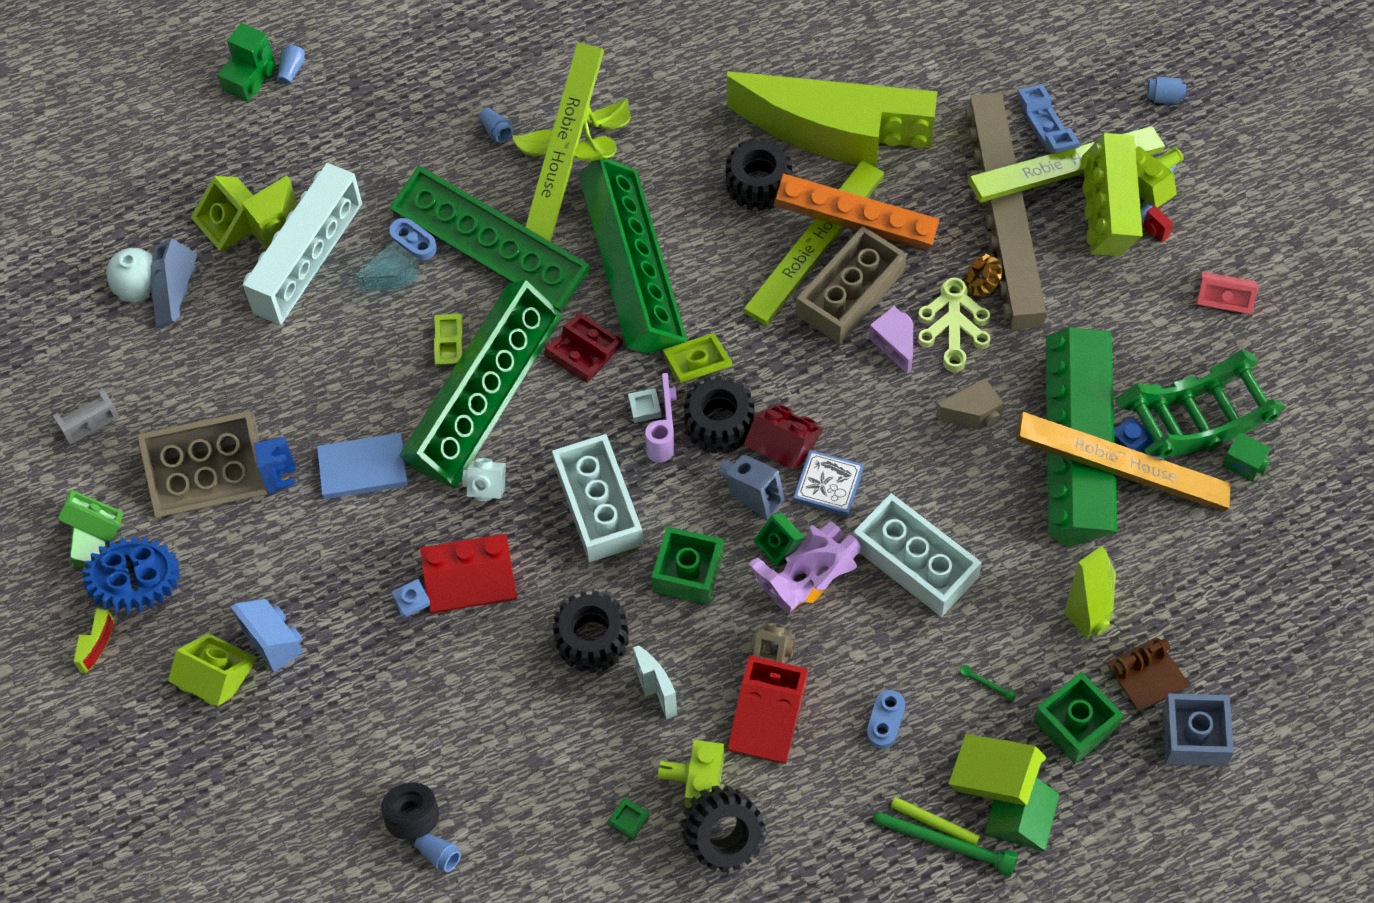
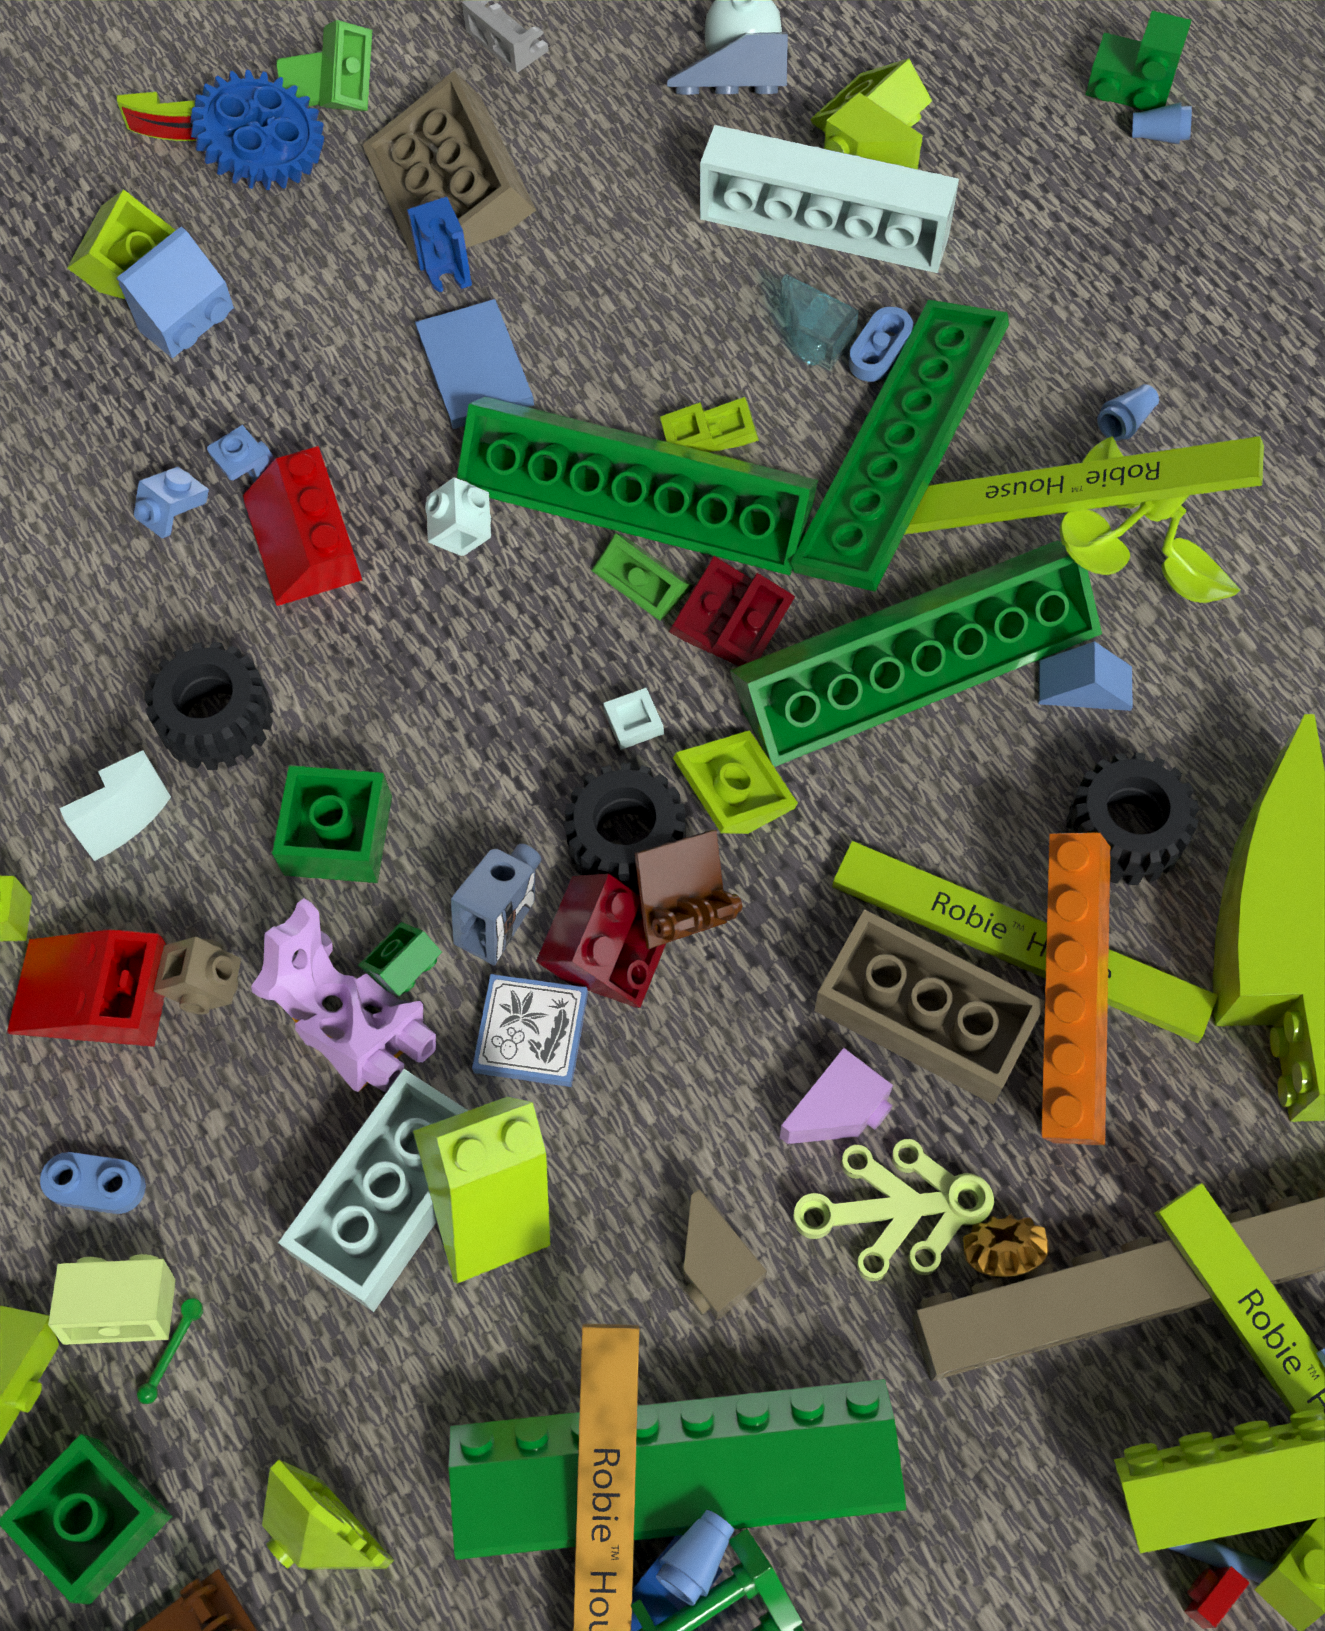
camera: 80 degrees right, 5 degrees up
(425, 654) = (166, 496): none -> medium blue bracket
(546, 391) = (641, 577): none -> bright green slope
(597, 498) = (442, 673): light aqua brick -> none
(660, 433) = (564, 752): lavender door -> none
(666, 183) = (1086, 678): none -> medium blue slope
(772, 386) = (683, 889): none -> reddish brown hinge
(920, 494) = (487, 1185): none -> lime slope
(959, 702) = (112, 1300): none -> yellowish green brick
(1130, 419) = (695, 1558): none -> medium blue cone

